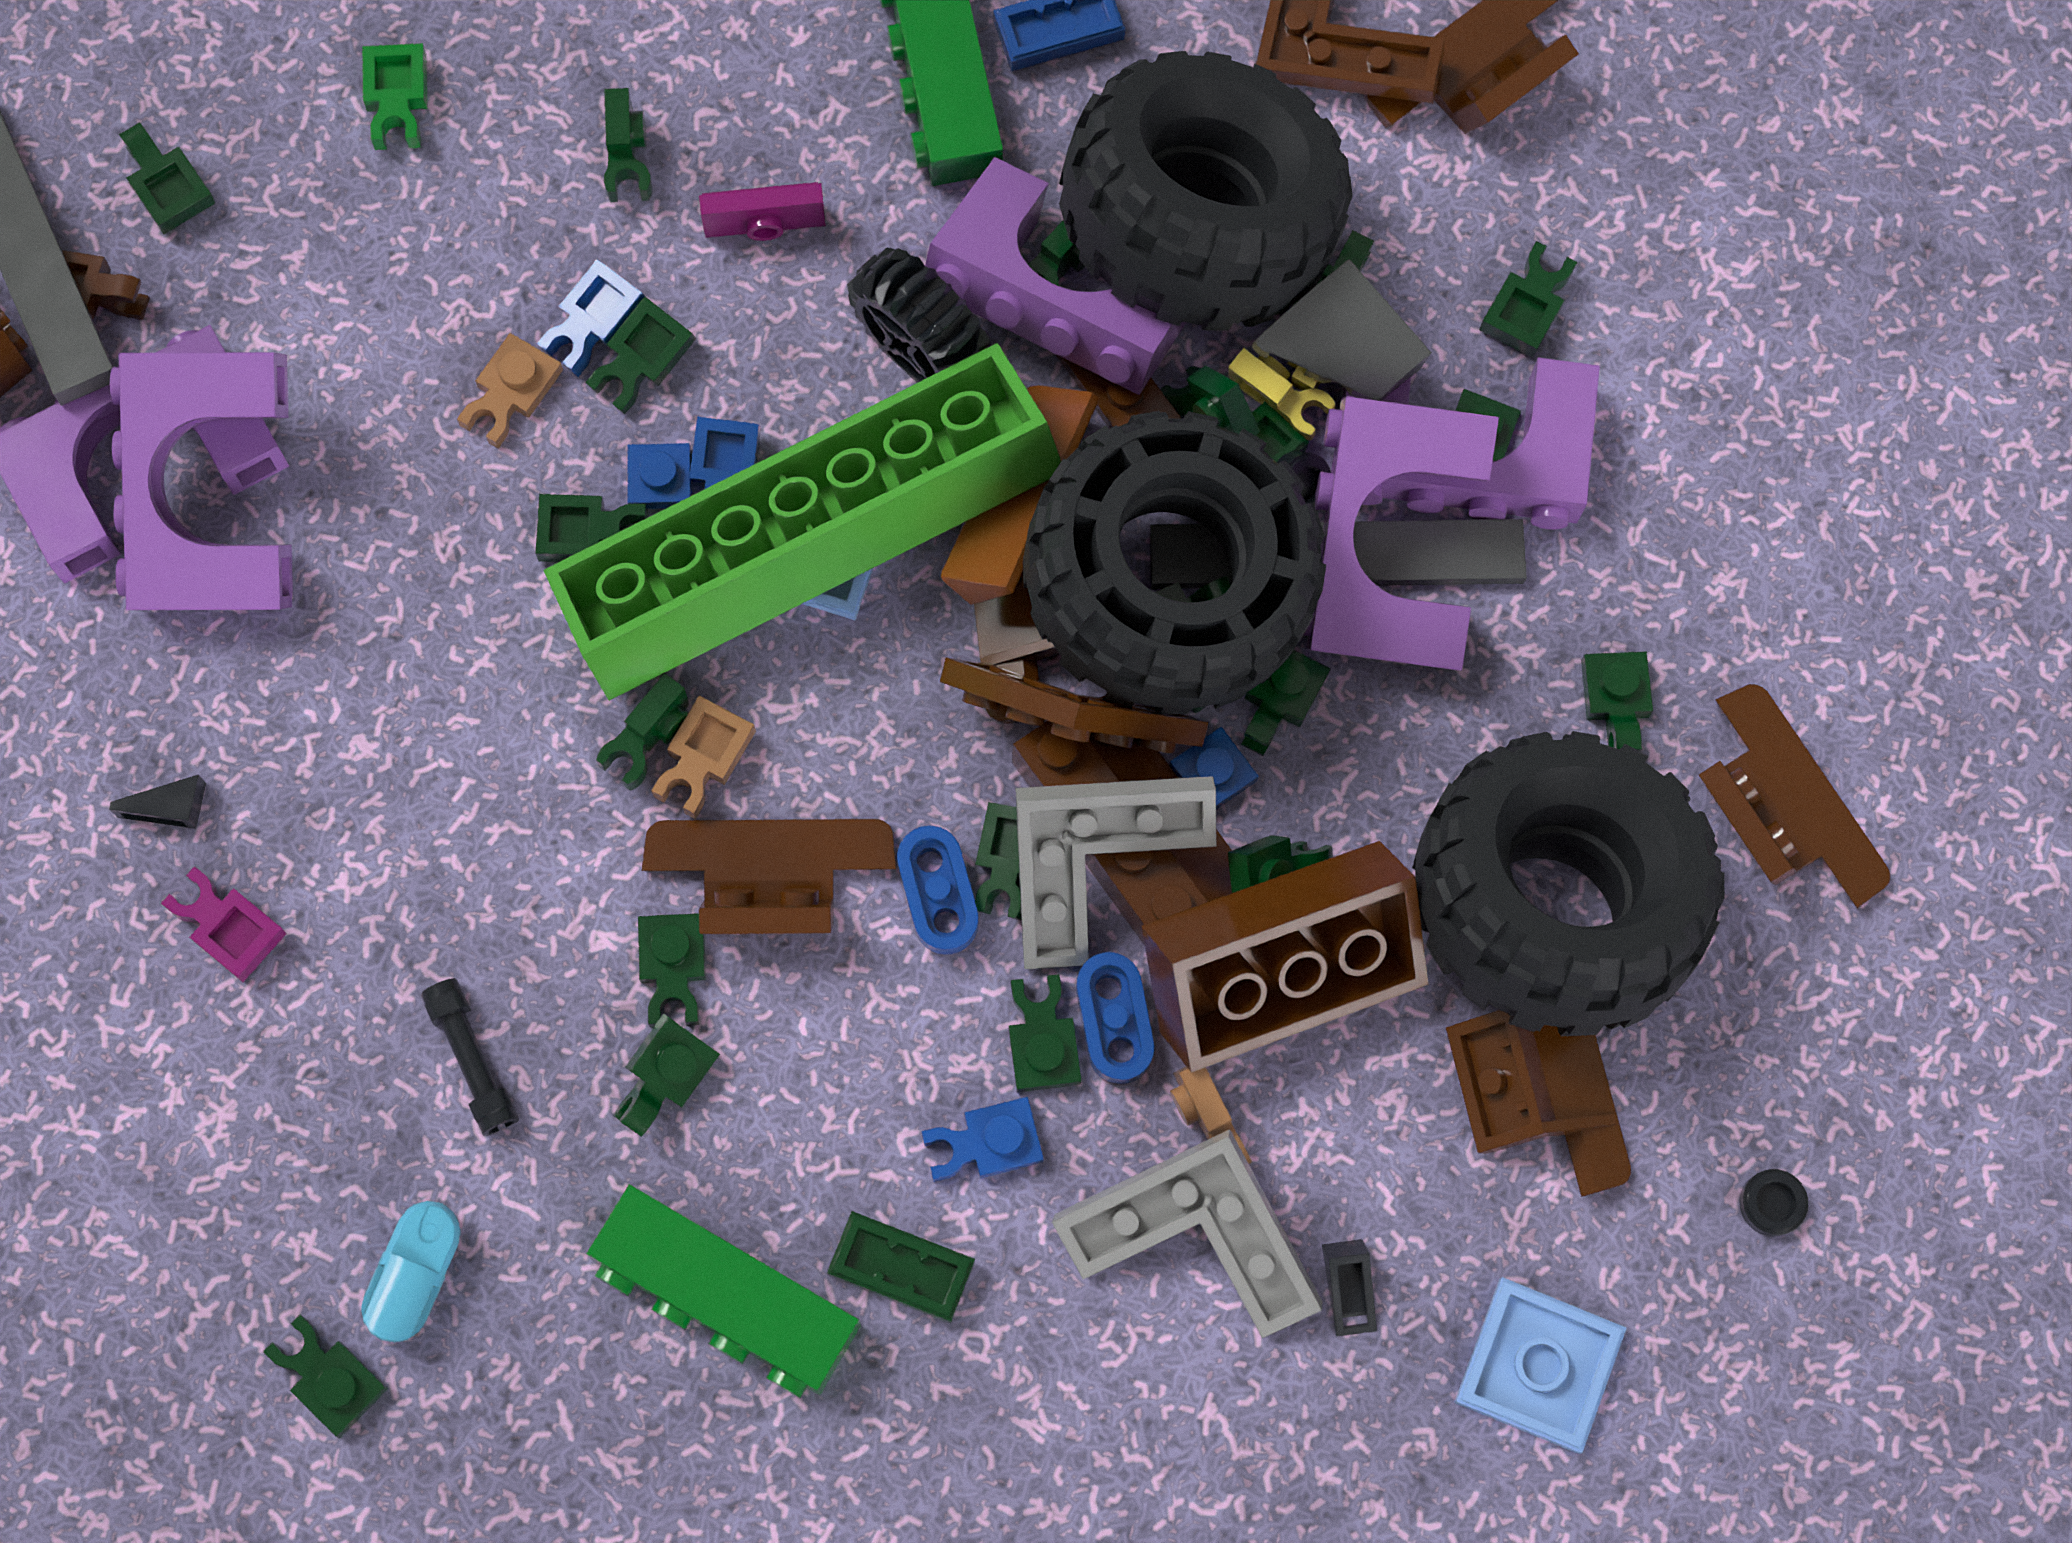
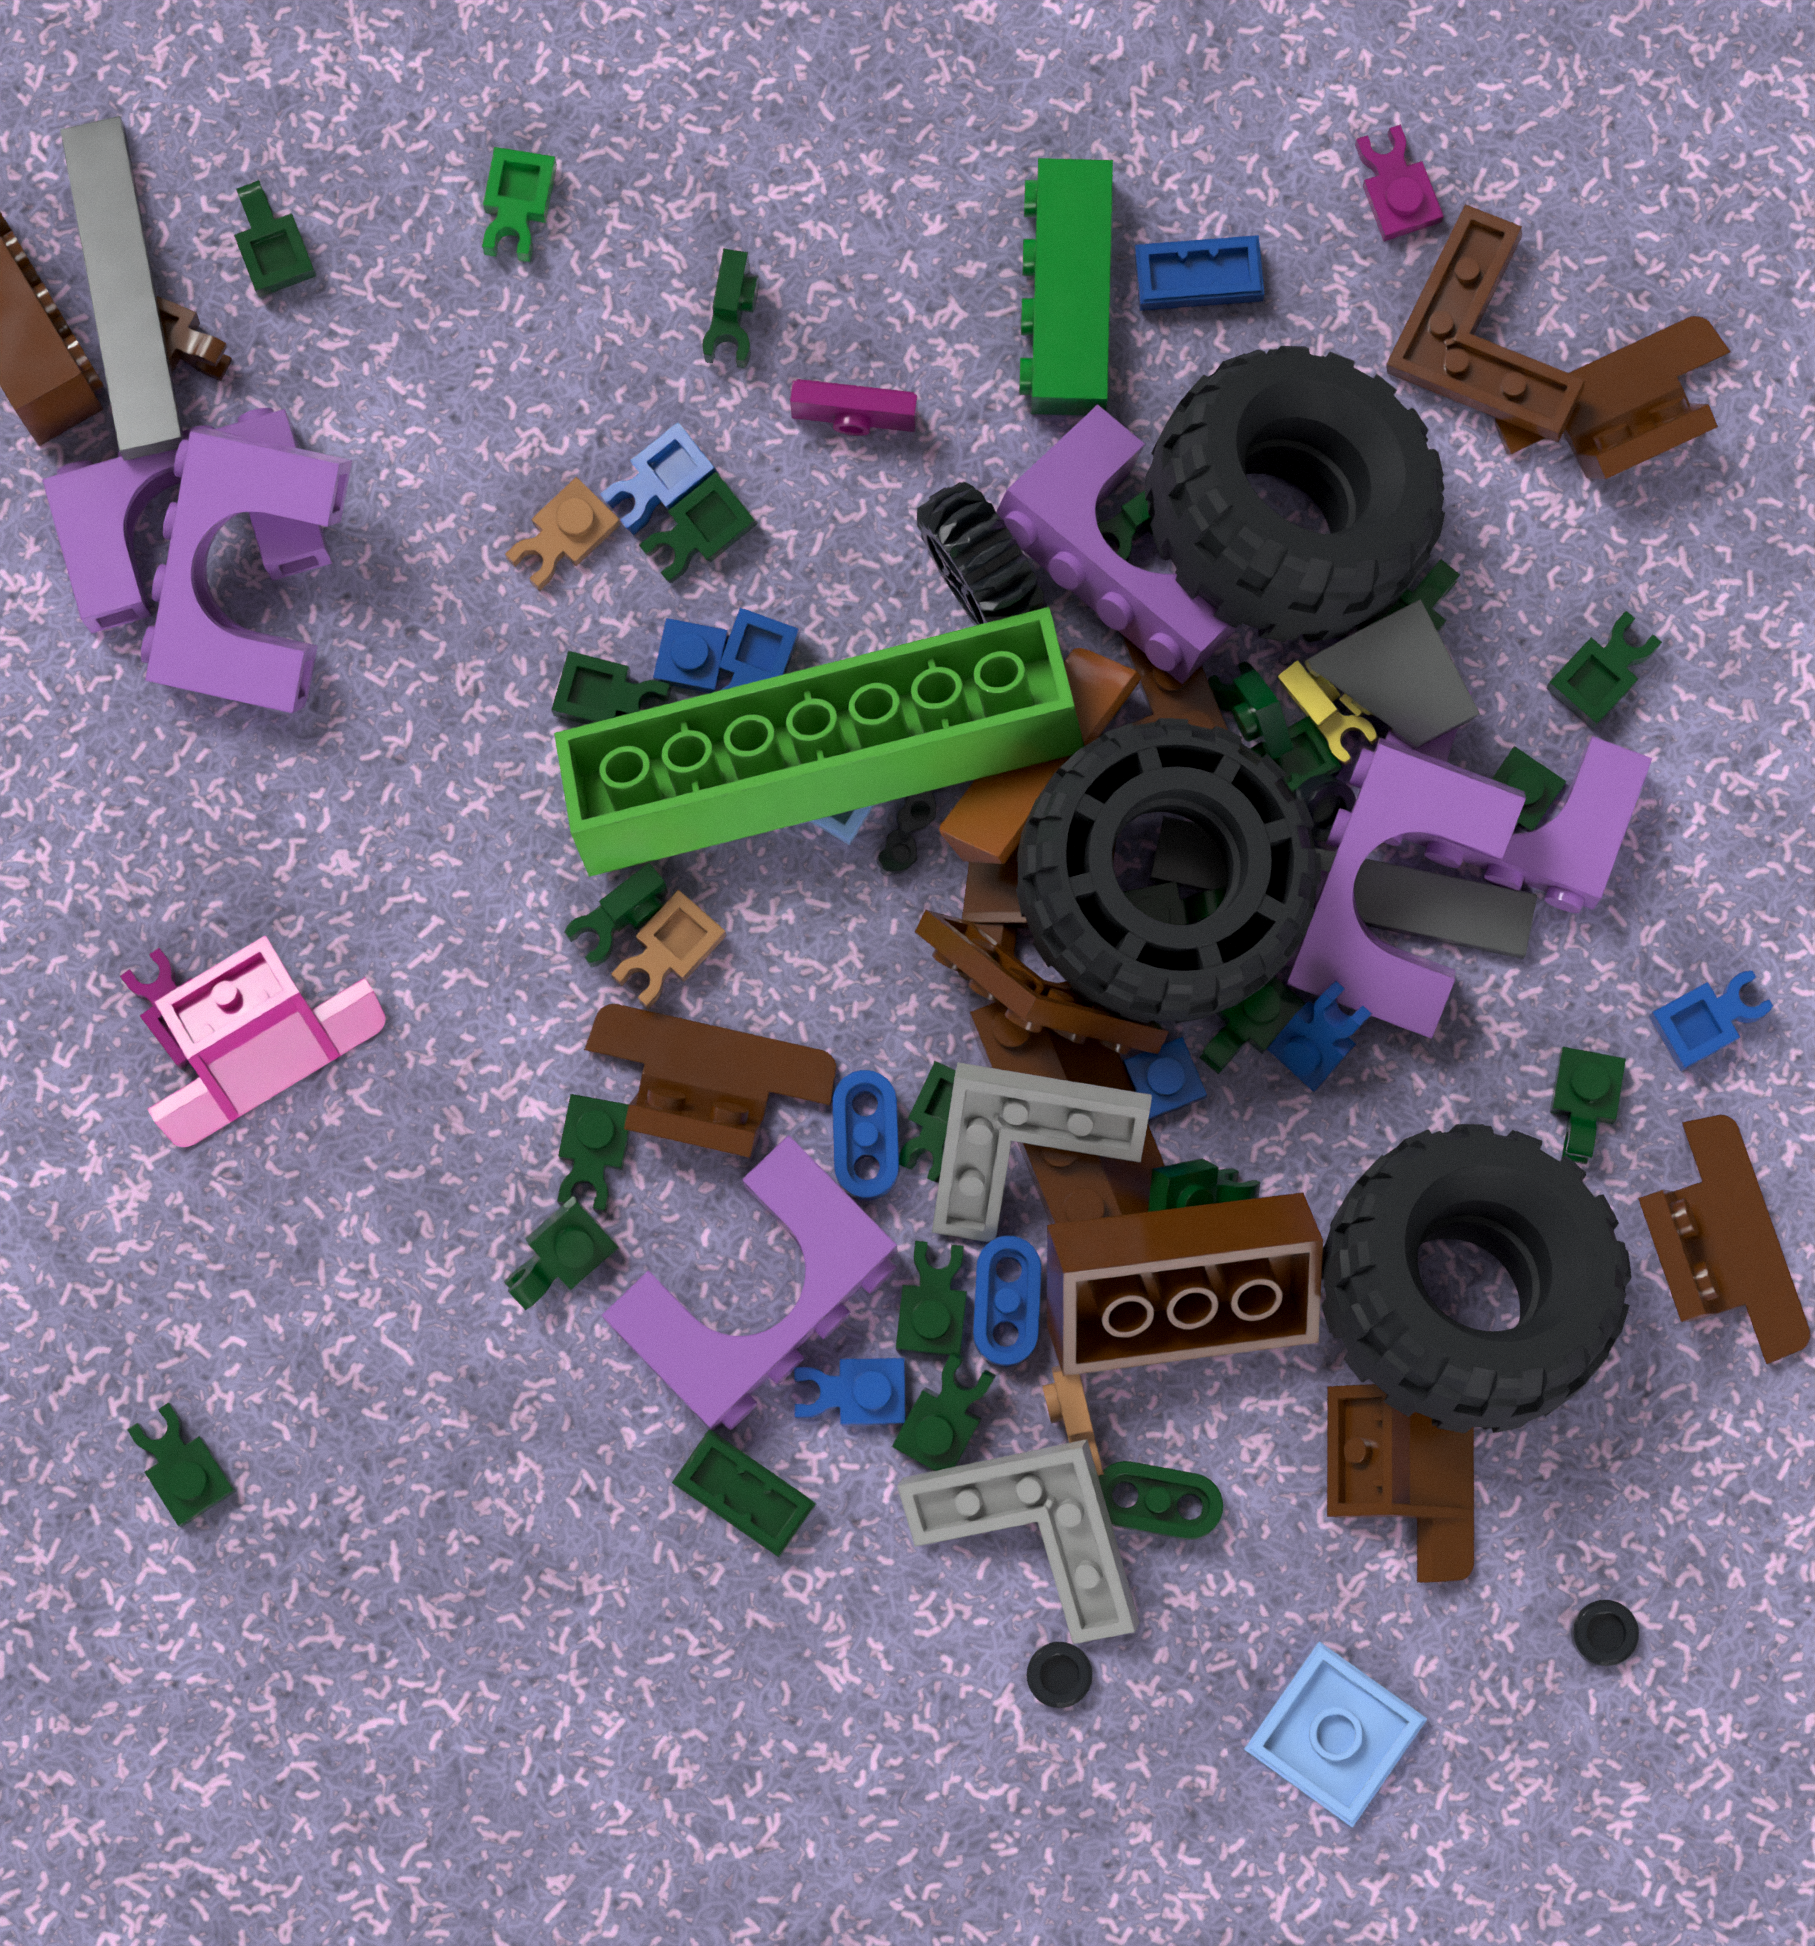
camera: 20 degrees right, 5 degrees up
(168, 804) = (147, 879): black piece -> none
(308, 933) = (253, 1038): none -> plate
(411, 1272) = (280, 1387): medium azure arm -> none
(447, 1007) = (370, 1138): black bar -> none
(724, 1291) = (570, 1476): green brick -> none
(848, 1151) = (721, 1371): none -> medium lavender arch
(911, 578) = (900, 846): none -> black piece
(1078, 1153) = (941, 1423): none -> dark green plate
(1256, 1372) = (1059, 1674): none -> black tile
(1309, 1175) = (1157, 1500): none -> dark green plate
(1350, 1285) = (1170, 1613): black piece -> none
(1352, 696) = (1318, 1038): none -> blue plate
(1711, 601) = (1702, 1023): none -> blue plate

